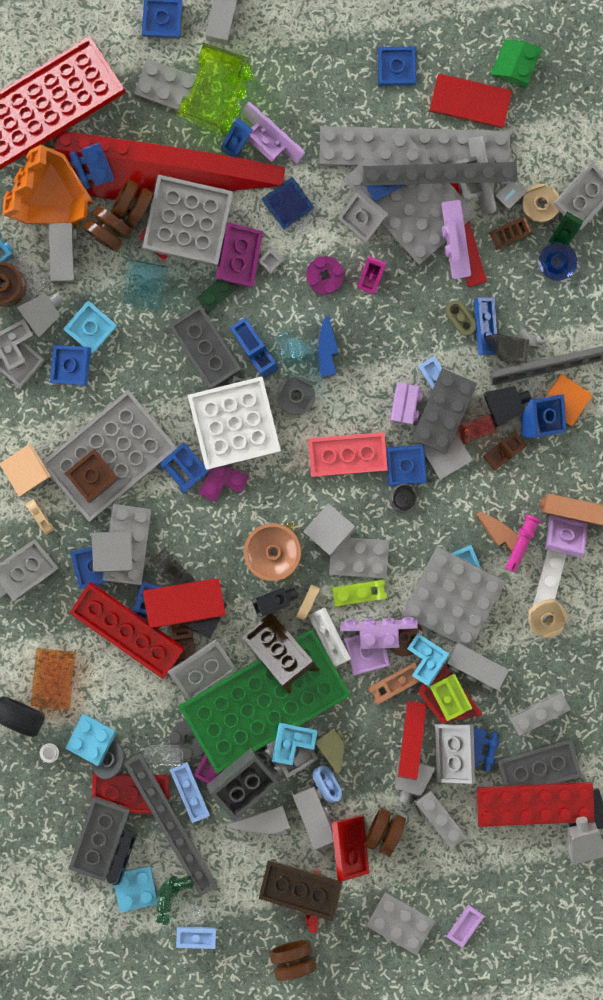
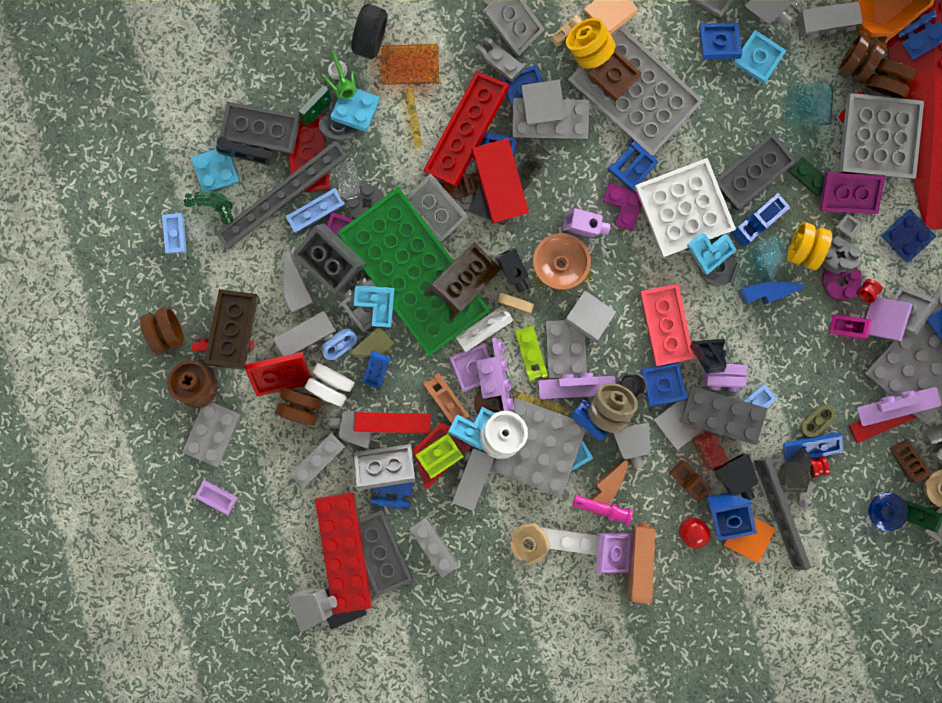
camera: 85 degrees right, 0 degrees up
(58, 496) = (590, 43): none -> yellow wheel
(61, 587) = (500, 60): none -> light grey hinge
(71, 747) = (345, 88): none -> bright green plant
(81, 776) = (315, 105): none -> dark green plate
(106, 681) = (414, 117): none -> clear yellow bar
(235, 530) = (578, 222): none -> lavender torso
(285, 403) = (710, 255): none -> medium azure plate
(287, 305) = (809, 246): none -> yellow wheel
(291, 273) = (850, 256): none -> dark grey plate
(338, 250) = (870, 290): none -> red wheel
(350, 935) = (192, 384): none -> reddish brown wheel
(358, 750) = (376, 370): none -> blue plate
(368, 237) = (888, 318): none -> lavender tile
(369, 800) = (328, 387): none -> white wheel
(383, 416) = (710, 354): none -> black wing
(398, 552) = (572, 387): none -> lavender bracket
(410, 588) = (542, 403): none -> clear yellow bar
(424, 520) = (612, 407): none -> dark tan wheel
(433, 541) = (581, 416): none -> blue plate
(438, 621) = (513, 437): none -> white wheel
(460, 503) = (633, 443): none -> light grey torso
(506, 323) = (819, 467): none -> red wheel
(556, 453) = (694, 533): none -> red hair

